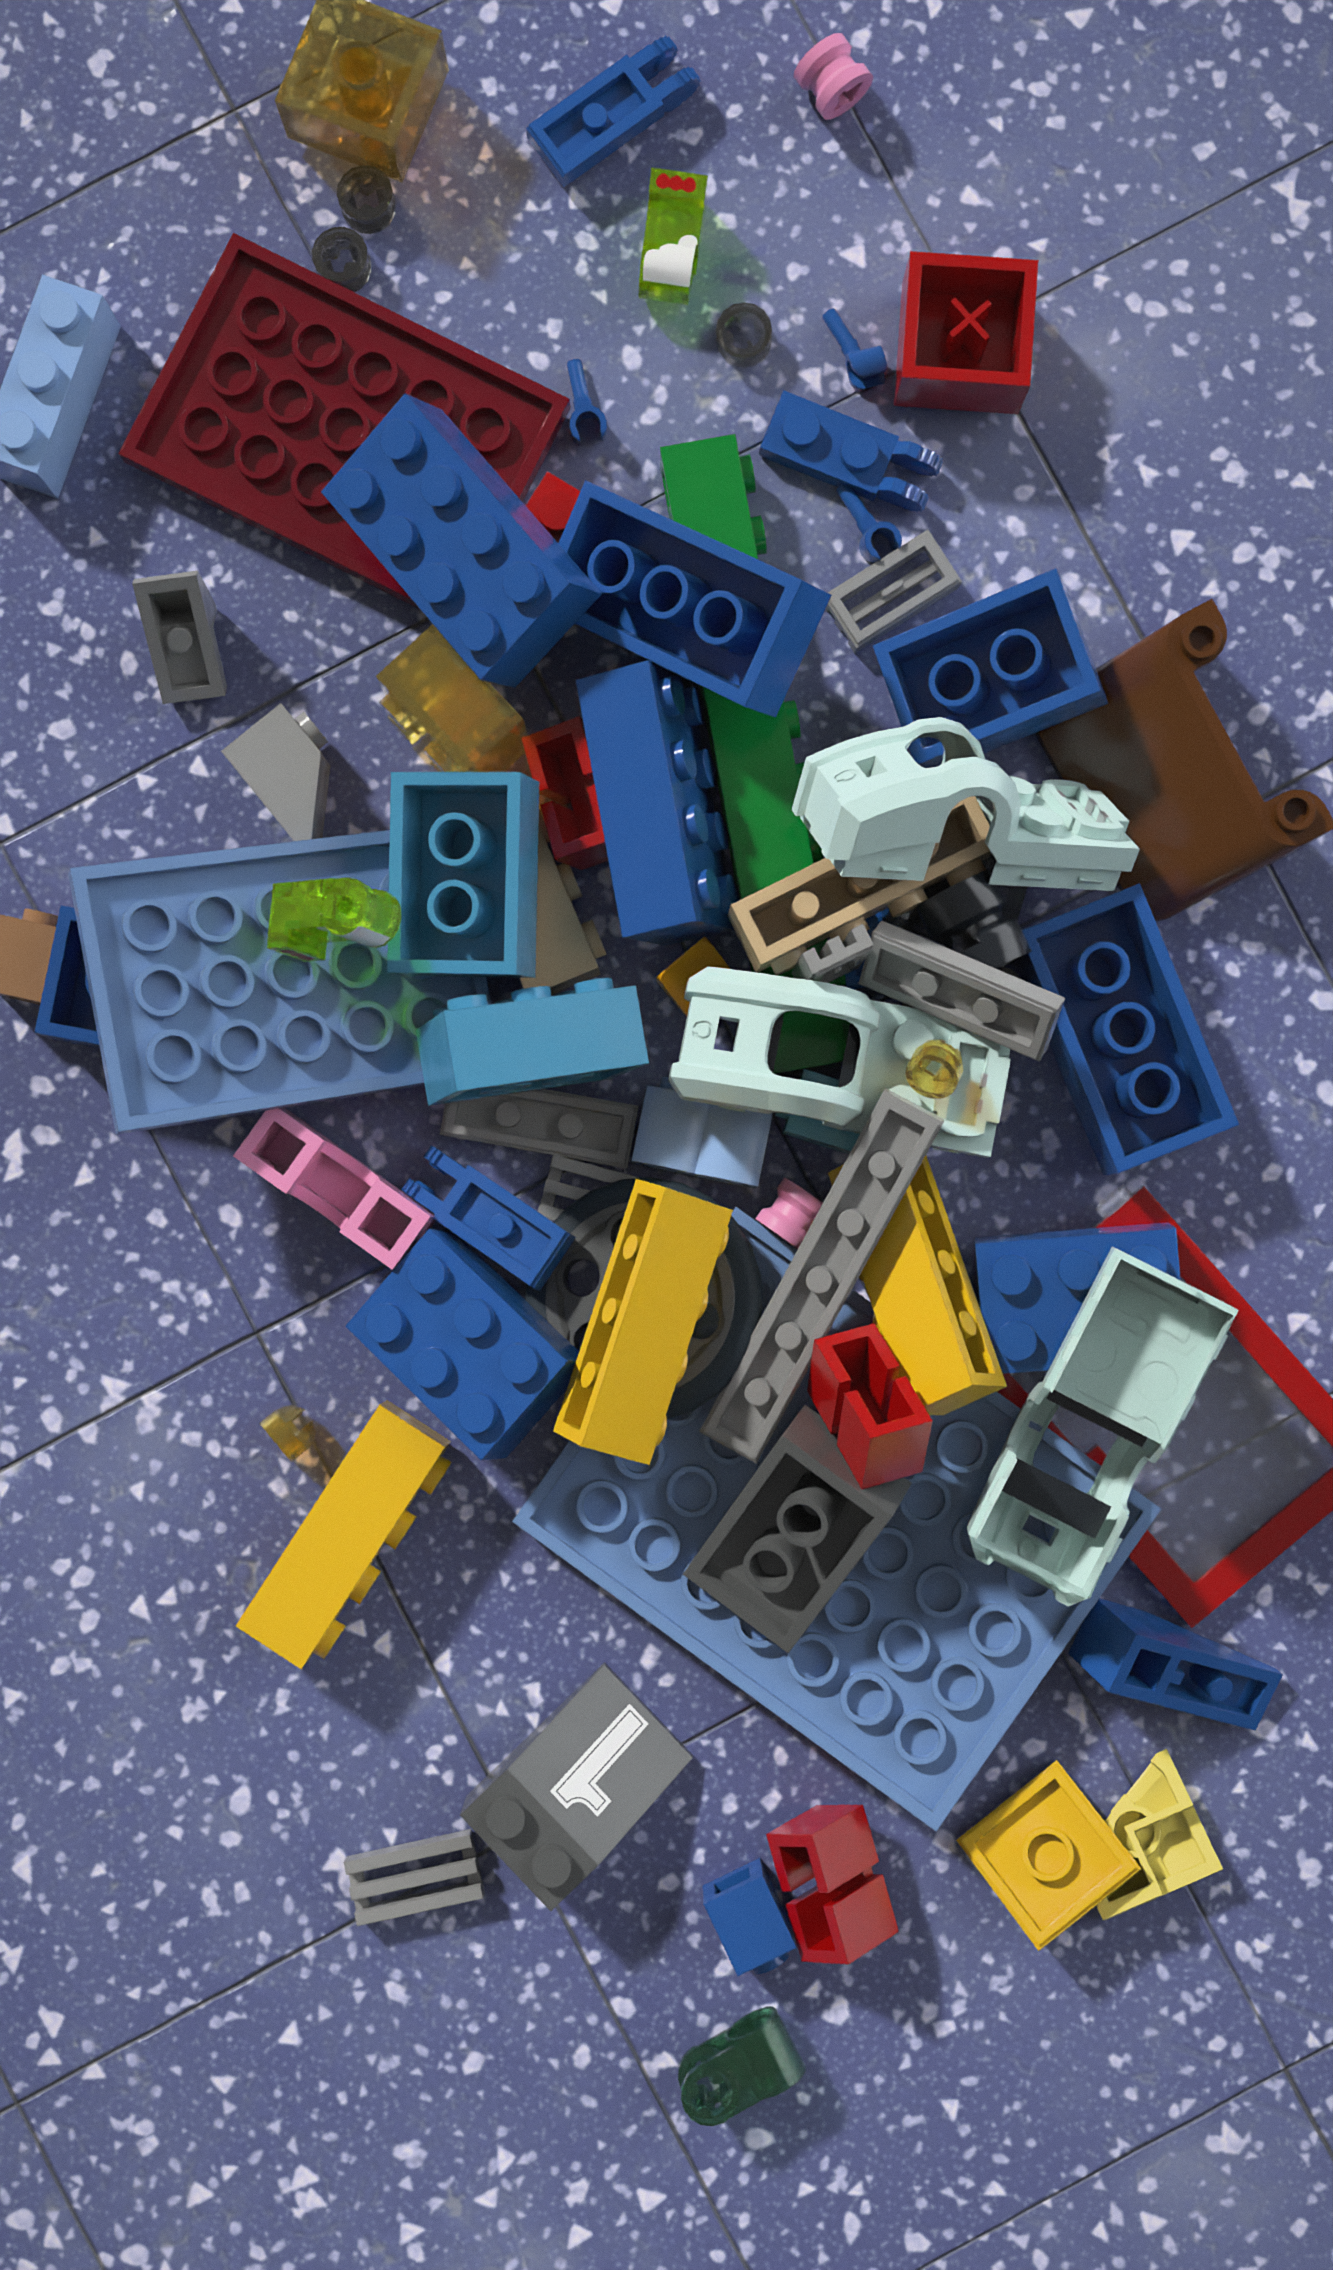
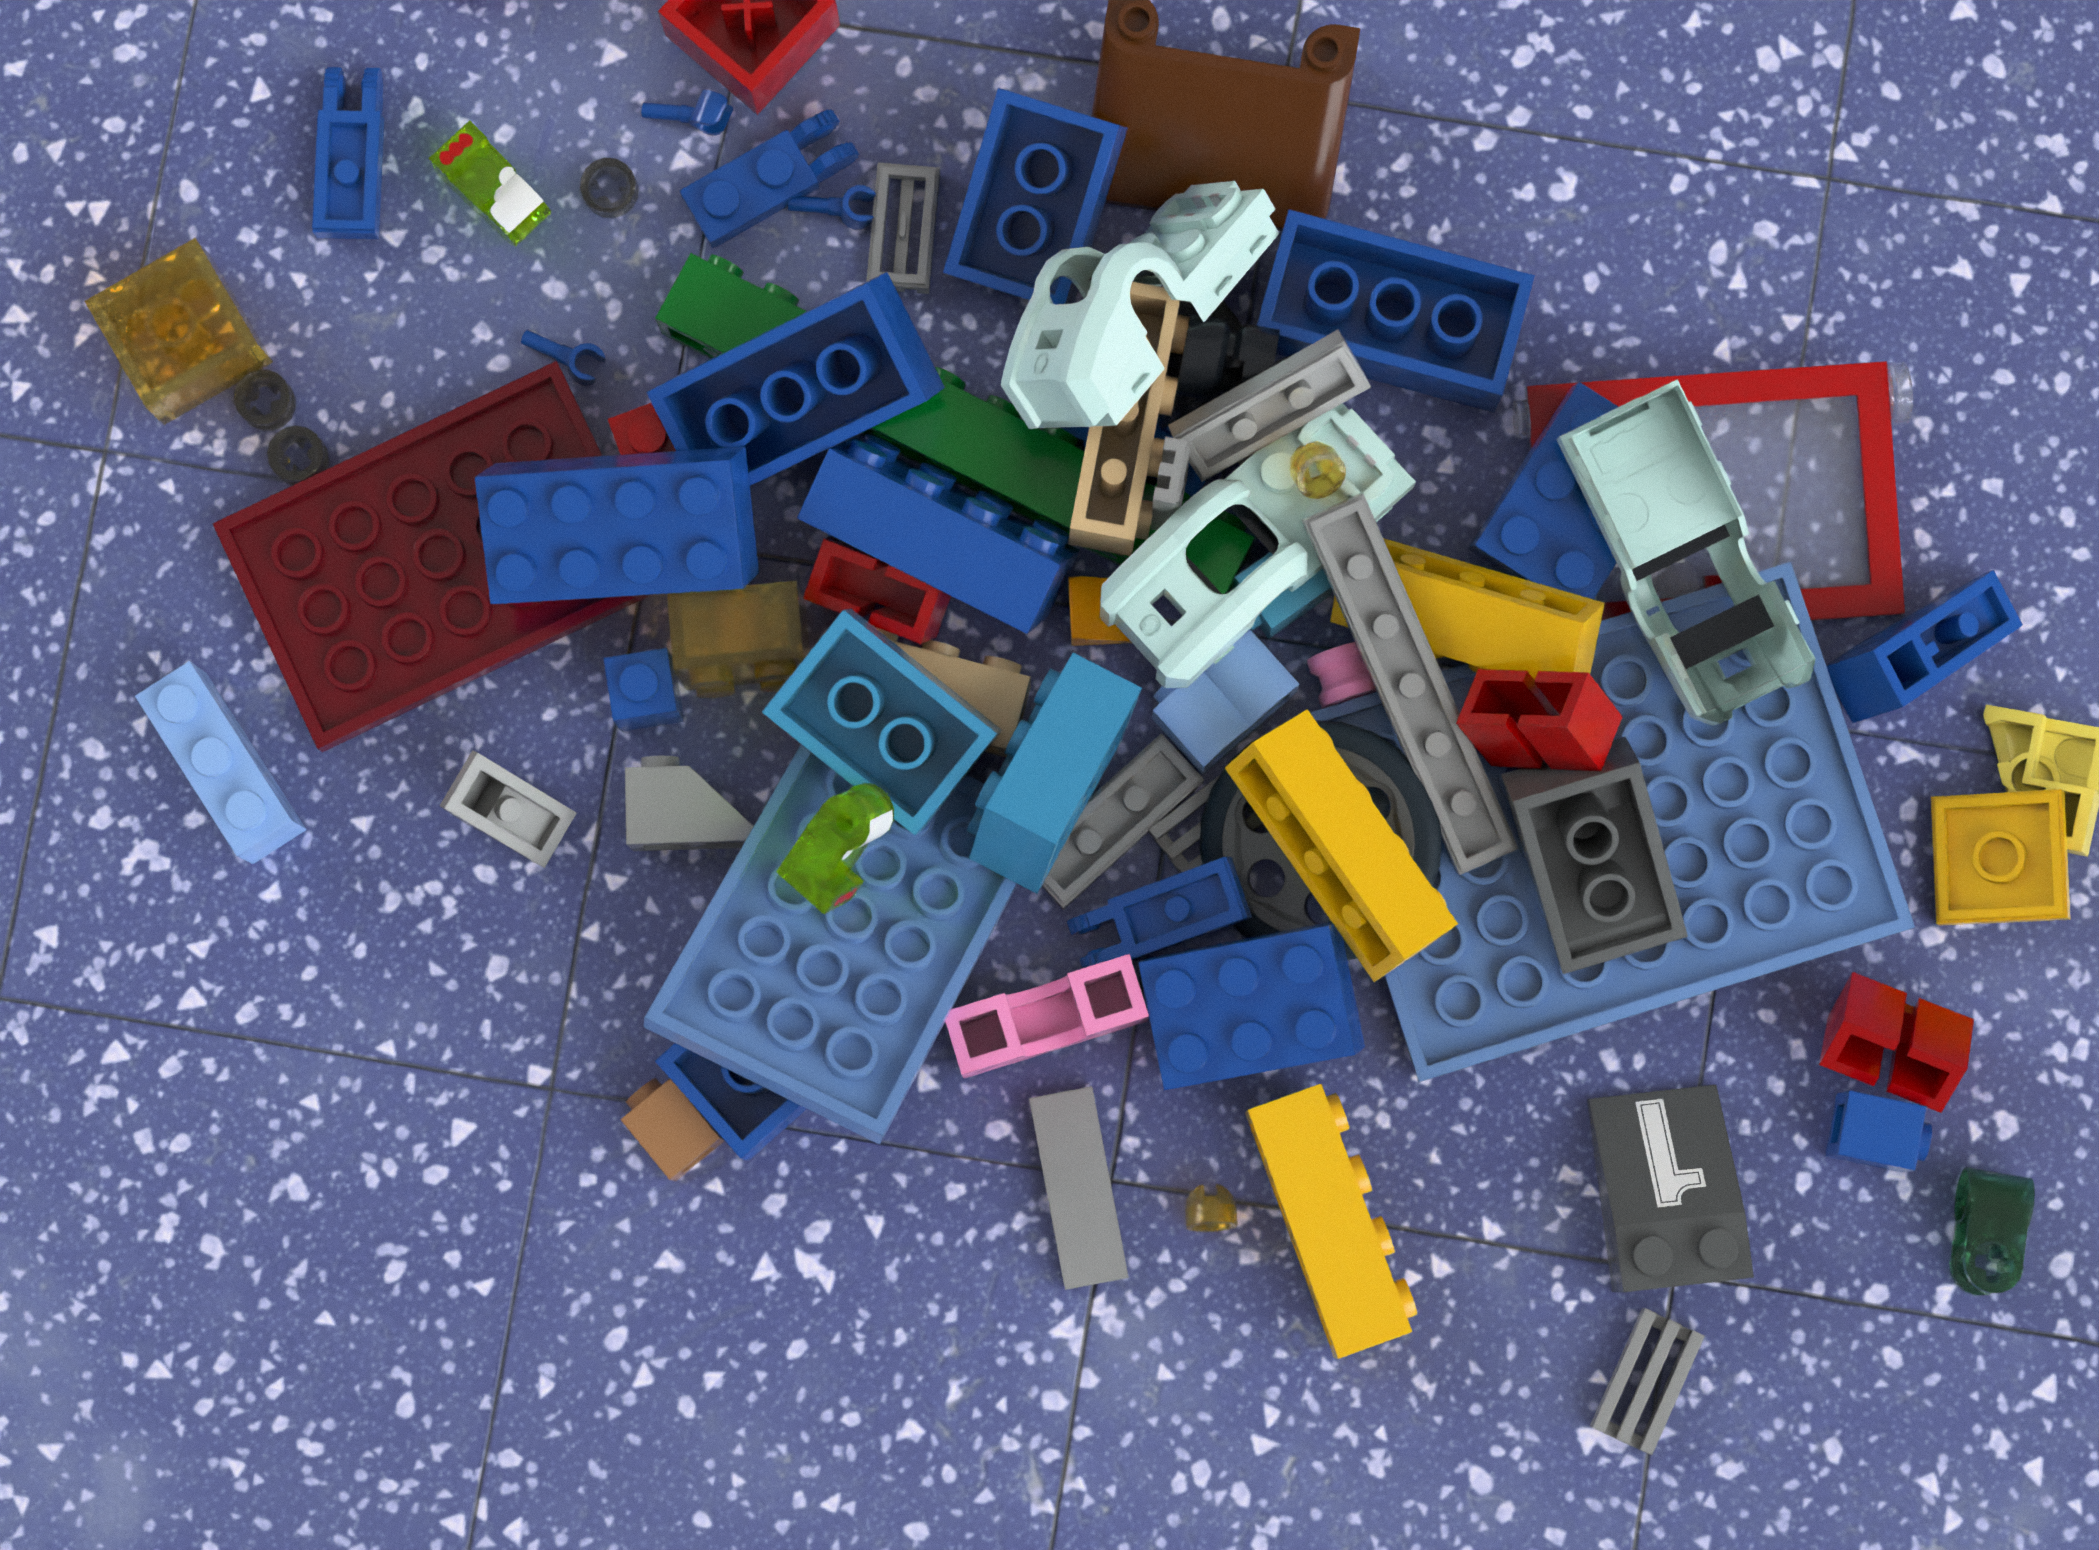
camera: 50 degrees left, 5 degrees down
(228, 1314) = (1078, 1188): none -> light grey tile
(350, 669) = (643, 689): none -> blue brick

